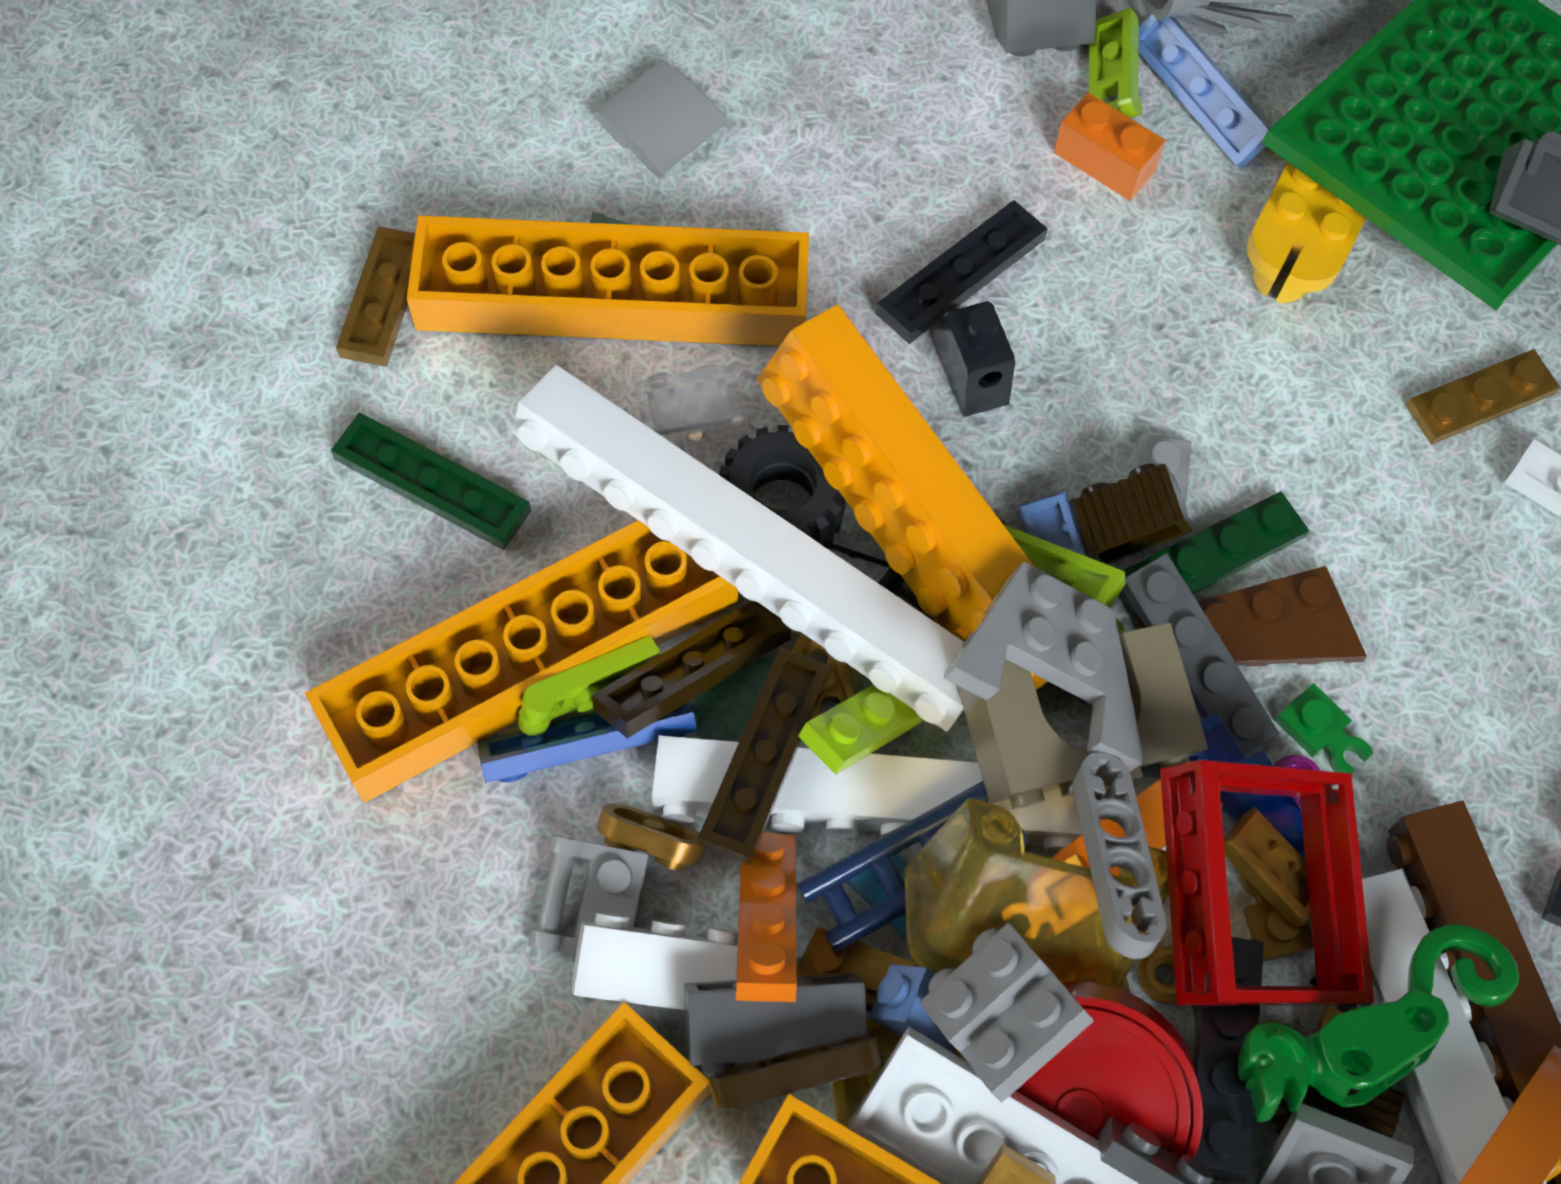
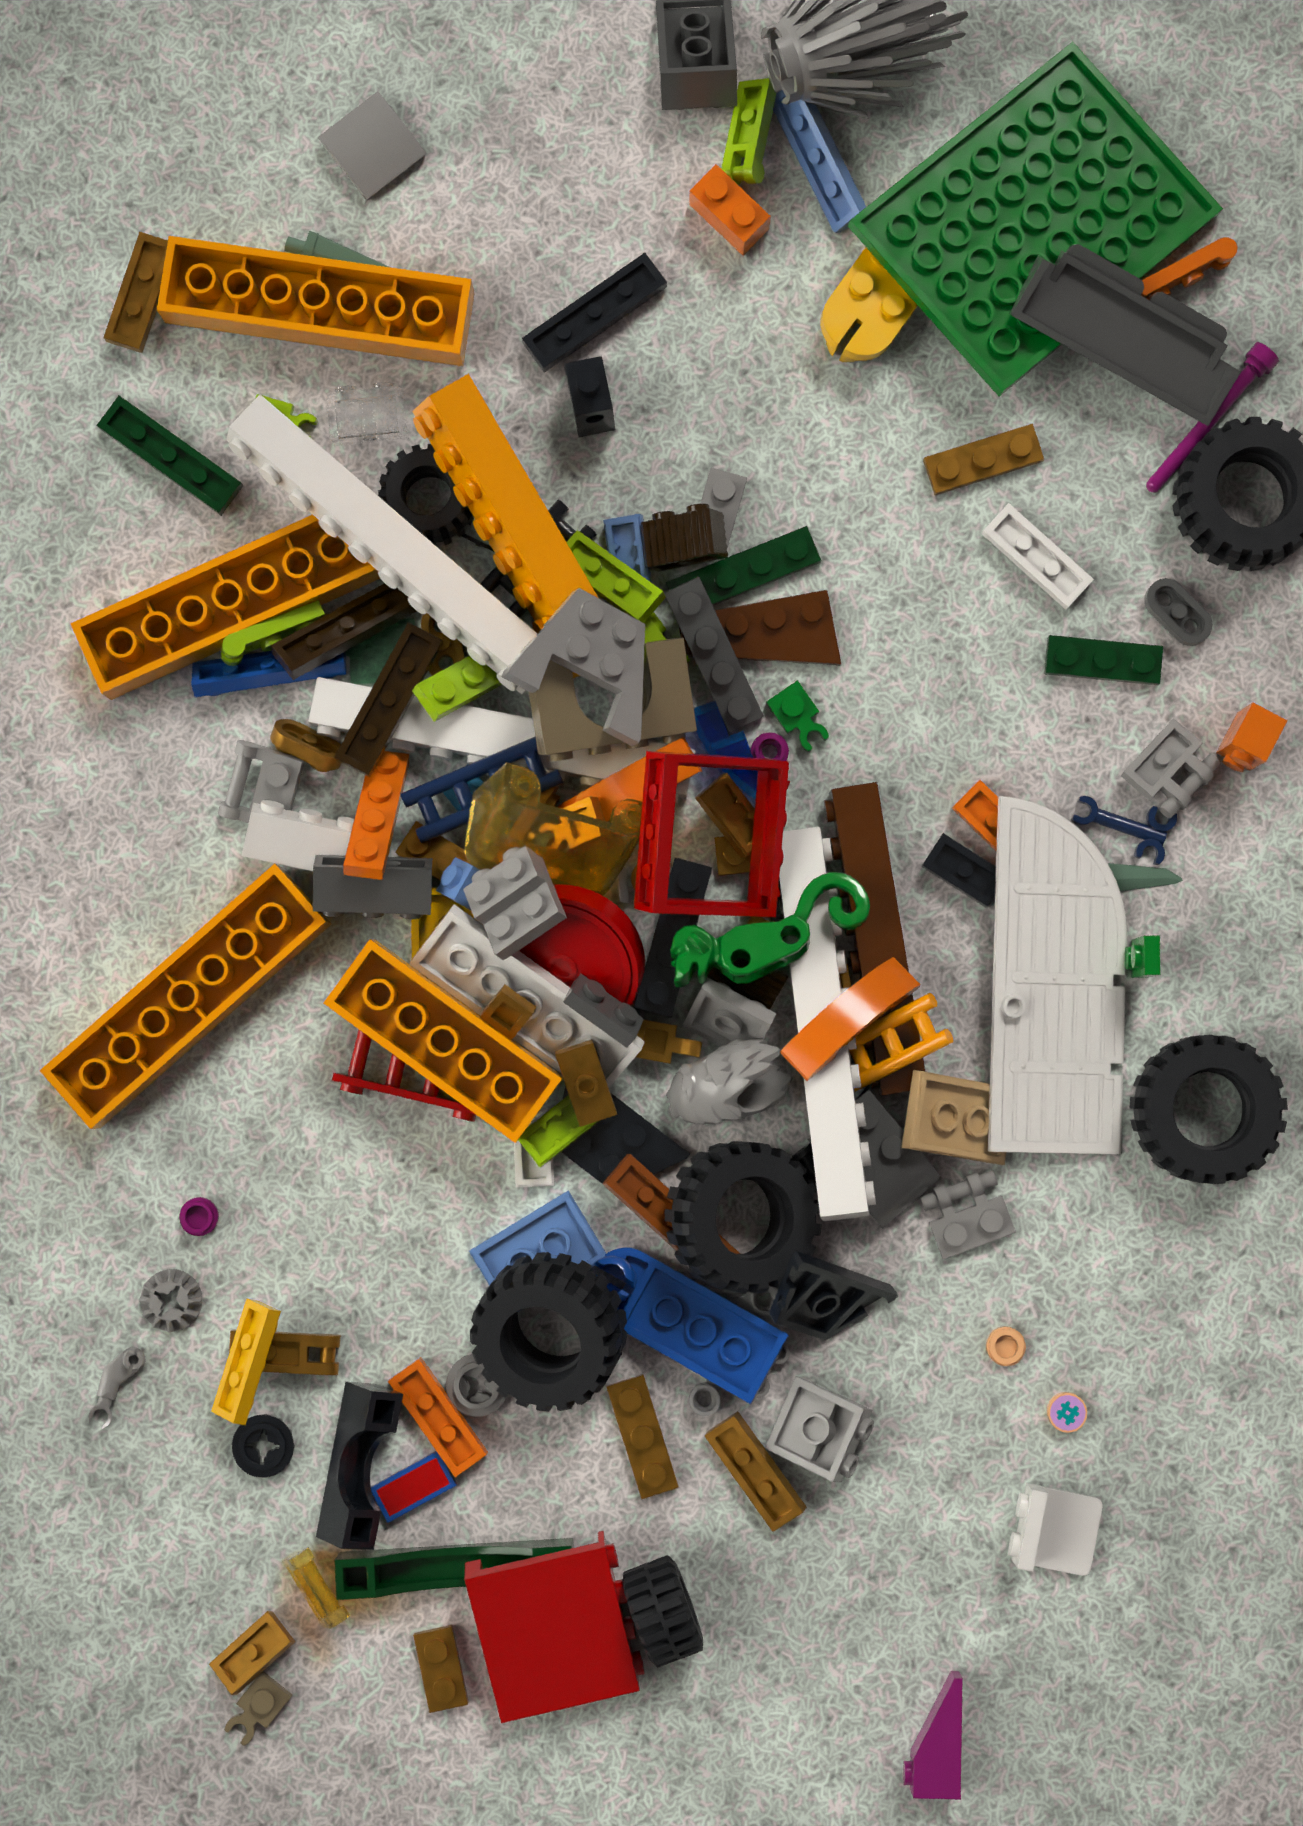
camera: 15 degrees right, 20 degrees up
(796, 1071) = (379, 923): dark brown beam -> none
(1126, 852) = (610, 807): light grey beam -> none

